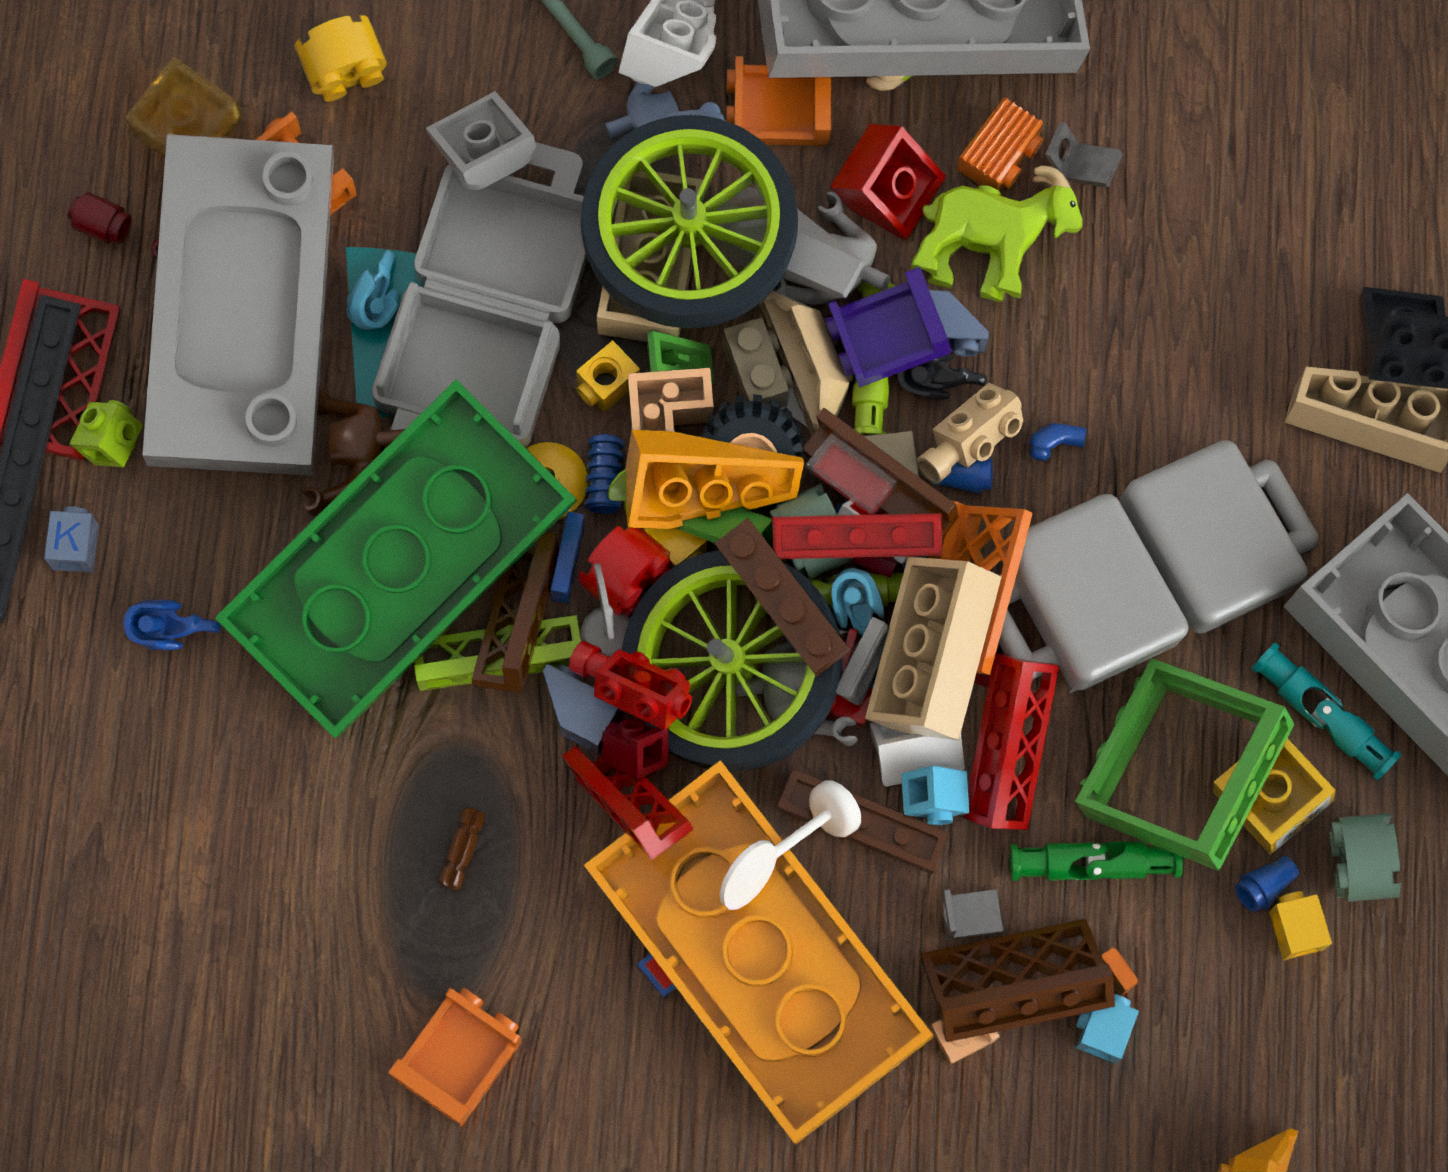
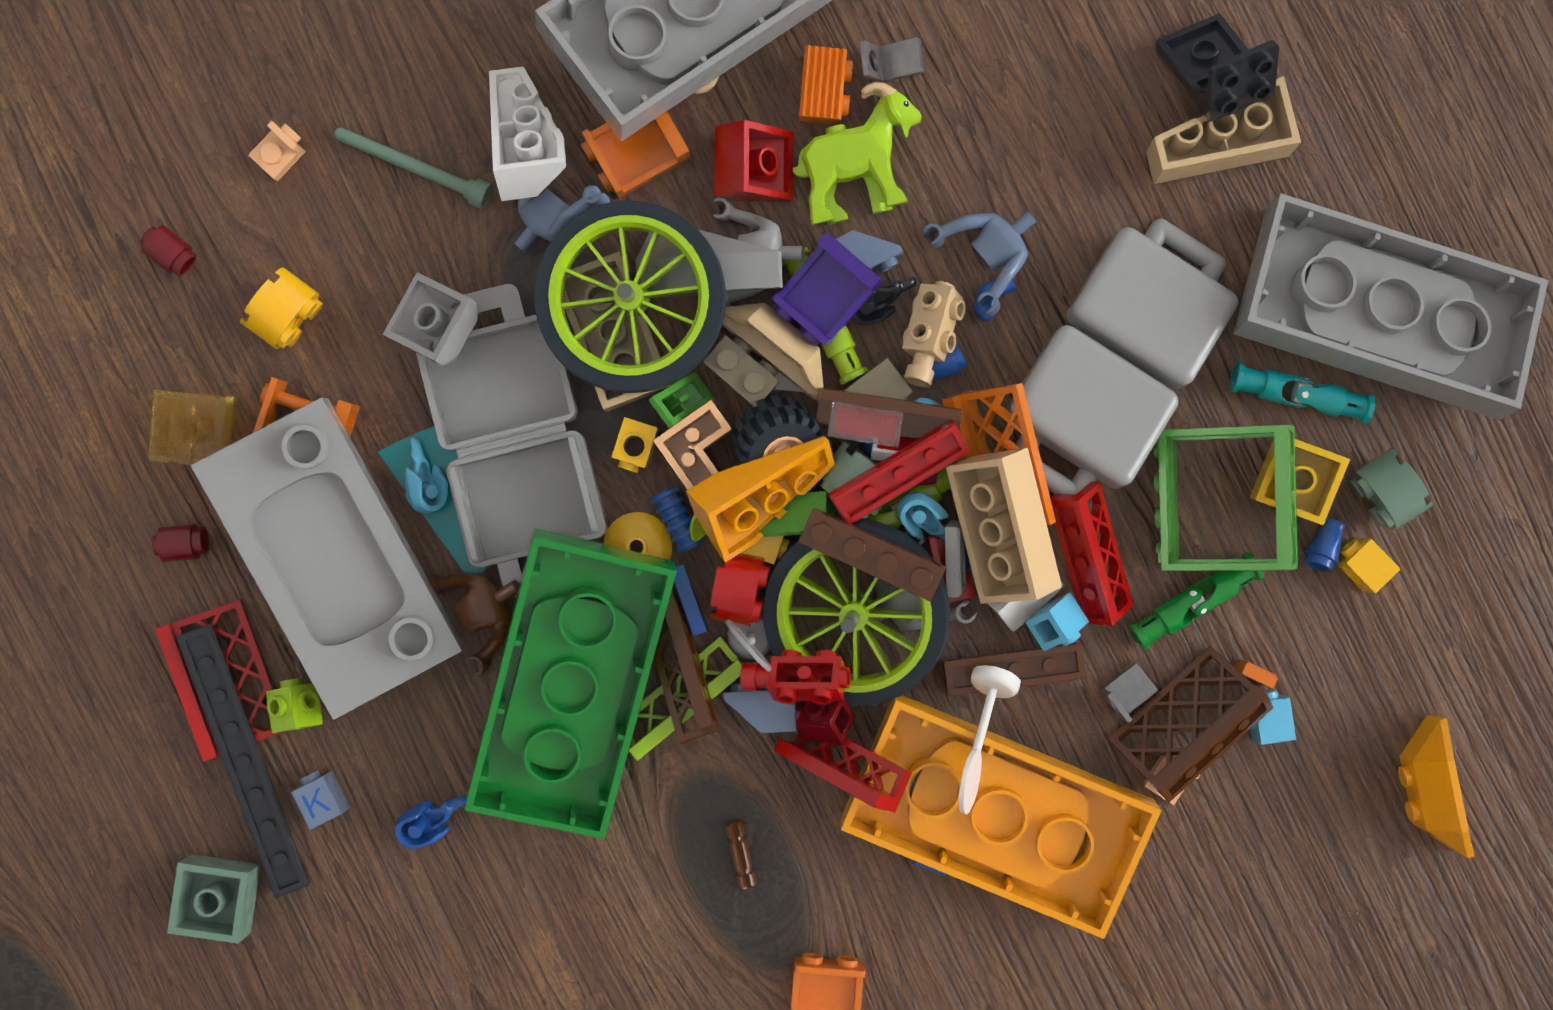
camera: 25 degrees left, 15 degrees up
(1089, 390) = (997, 245): none -> sand blue piece

